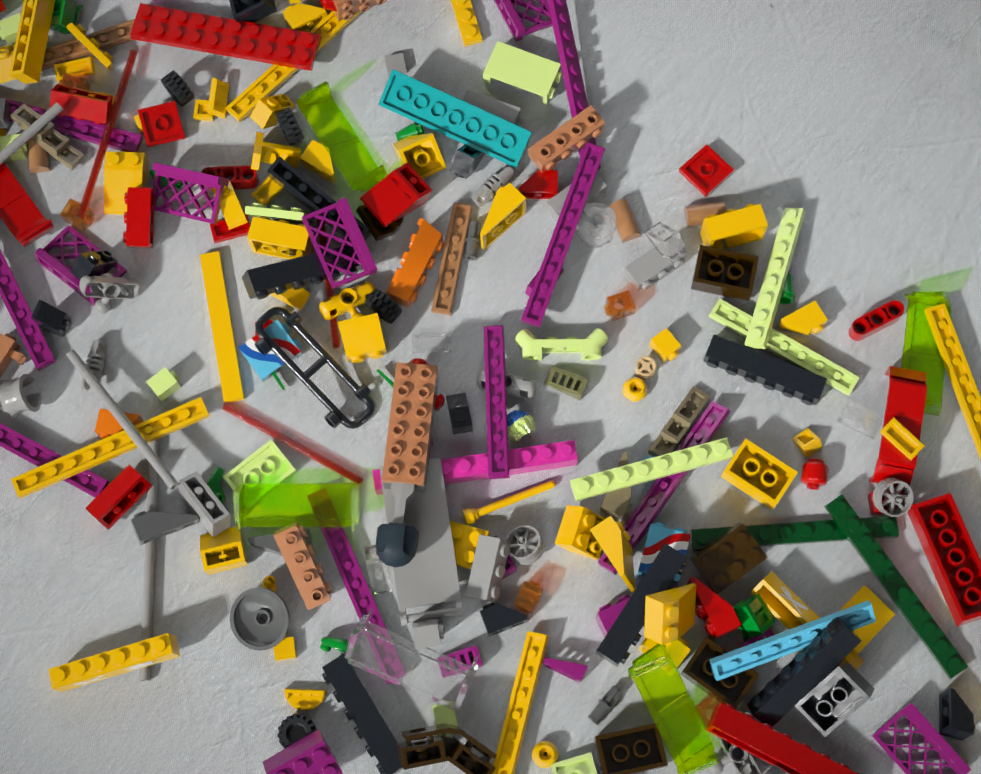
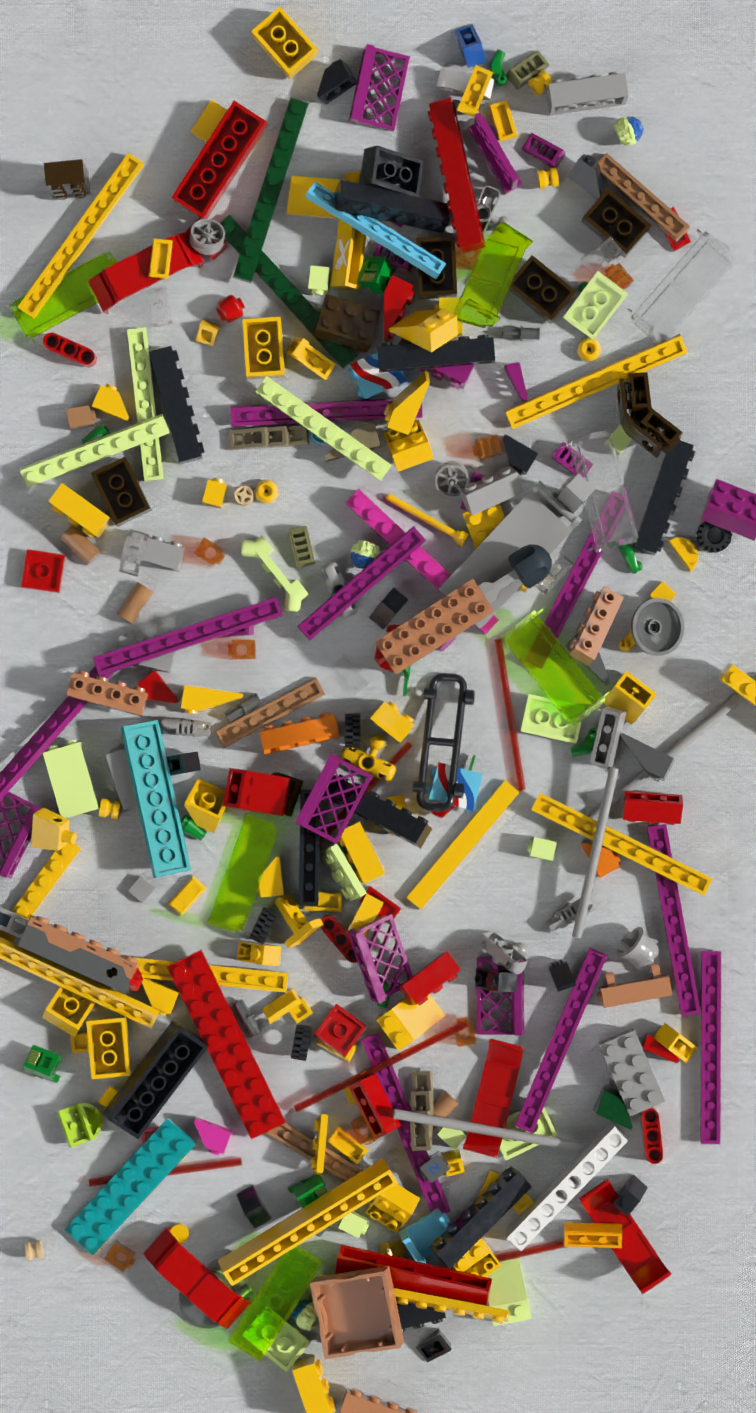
camera: 130 degrees left, 15 degrees up
(231, 67) = (247, 1018): none -> dark grey axle
(362, 94) = (187, 895): none -> yellow tile
(477, 83) = (108, 808): none -> yellow wheel
(495, 26) = (50, 831): none -> yellow torso
(515, 280) = (251, 649): none -> clear orange brick
(721, 507) = (309, 357): none -> yellow bracket
(784, 566) = (318, 280): none -> yellowish green brick
(811, 287) = (81, 417): none -> medium nougat brick

